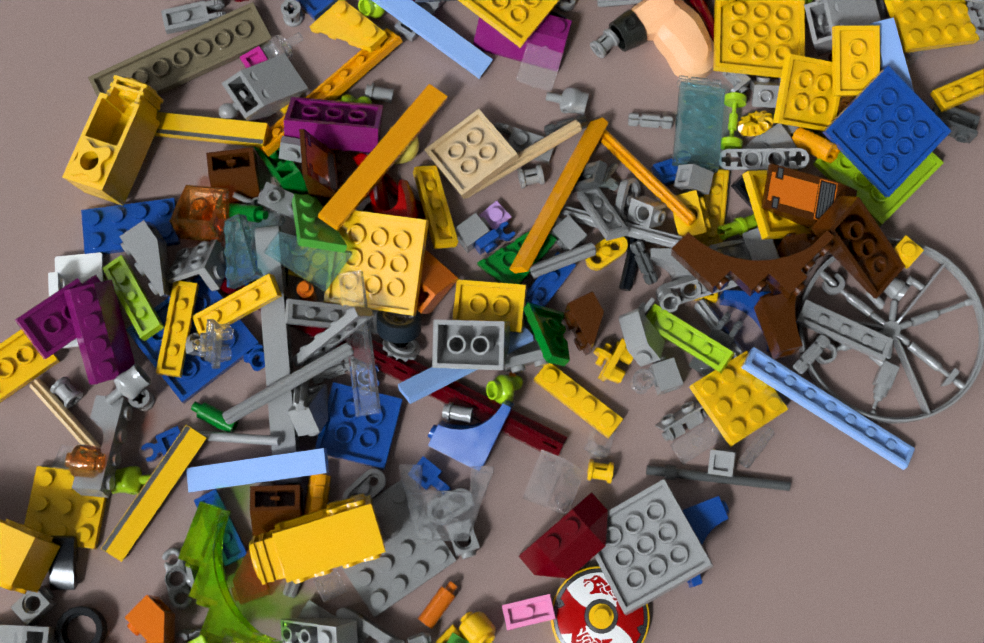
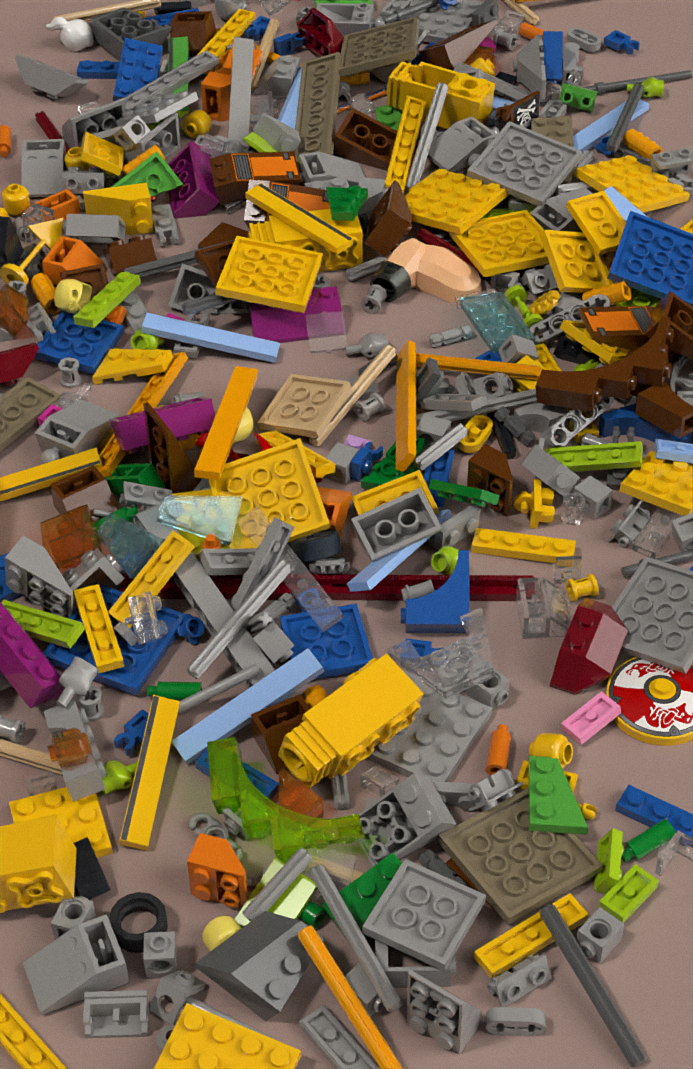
camera: 20 degrees left, 30 degrees down
(290, 149) = (134, 450): light grey plate -> none
(310, 229) = (194, 488): bright green wing -> none

